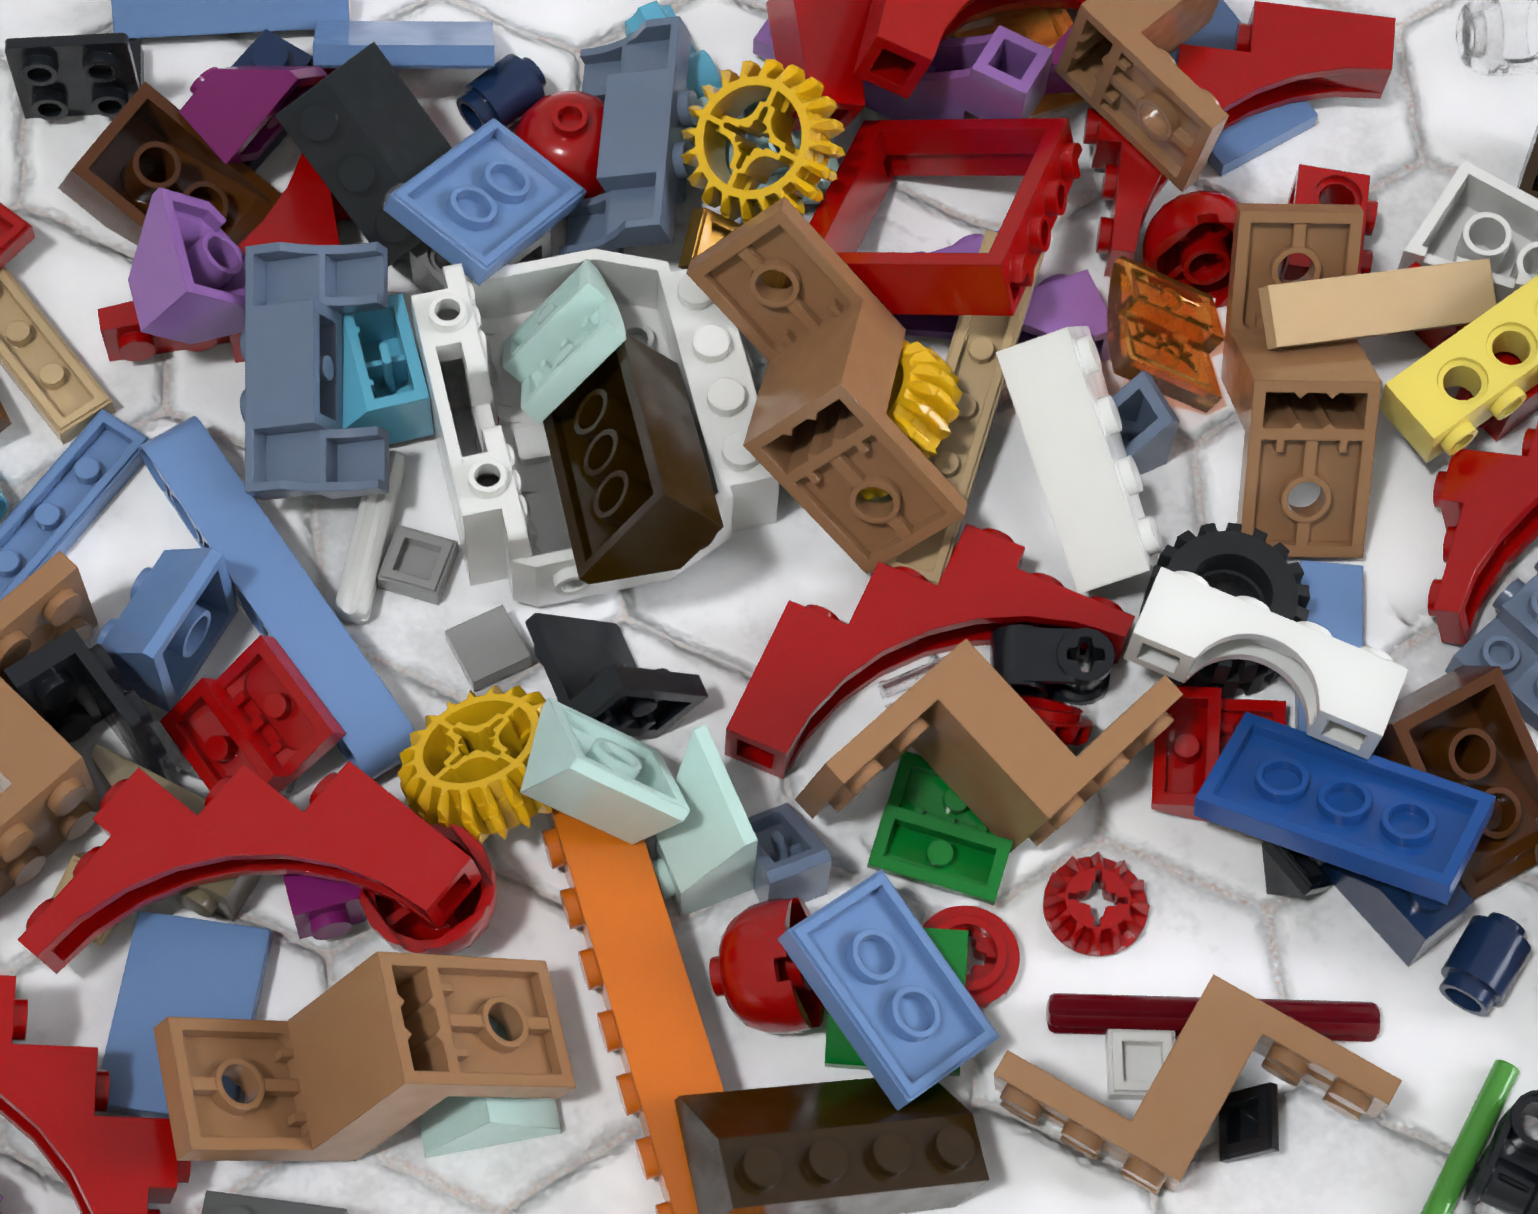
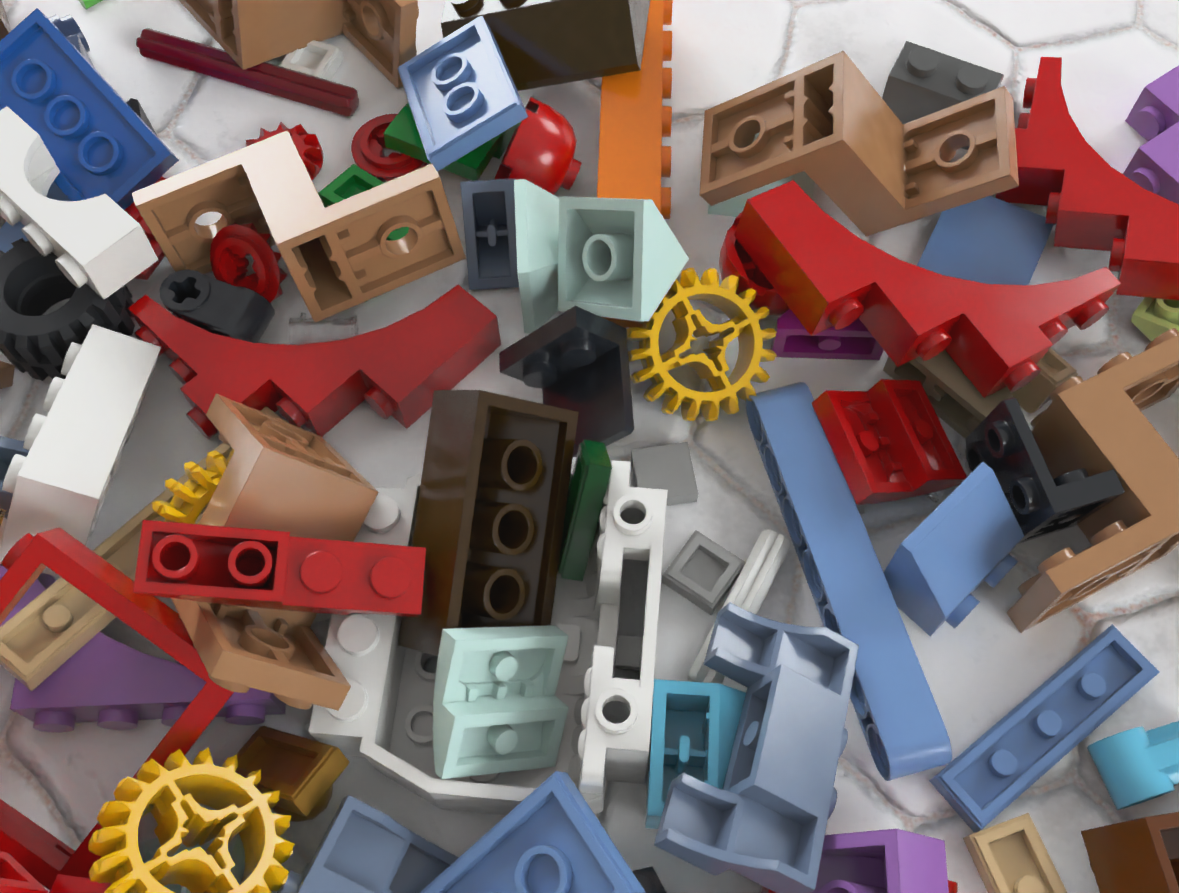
camera: 155 degrees left, 0 degrees up
(545, 513) = (583, 508): none -> dark green tile
(799, 321) = (278, 570): none -> red slope

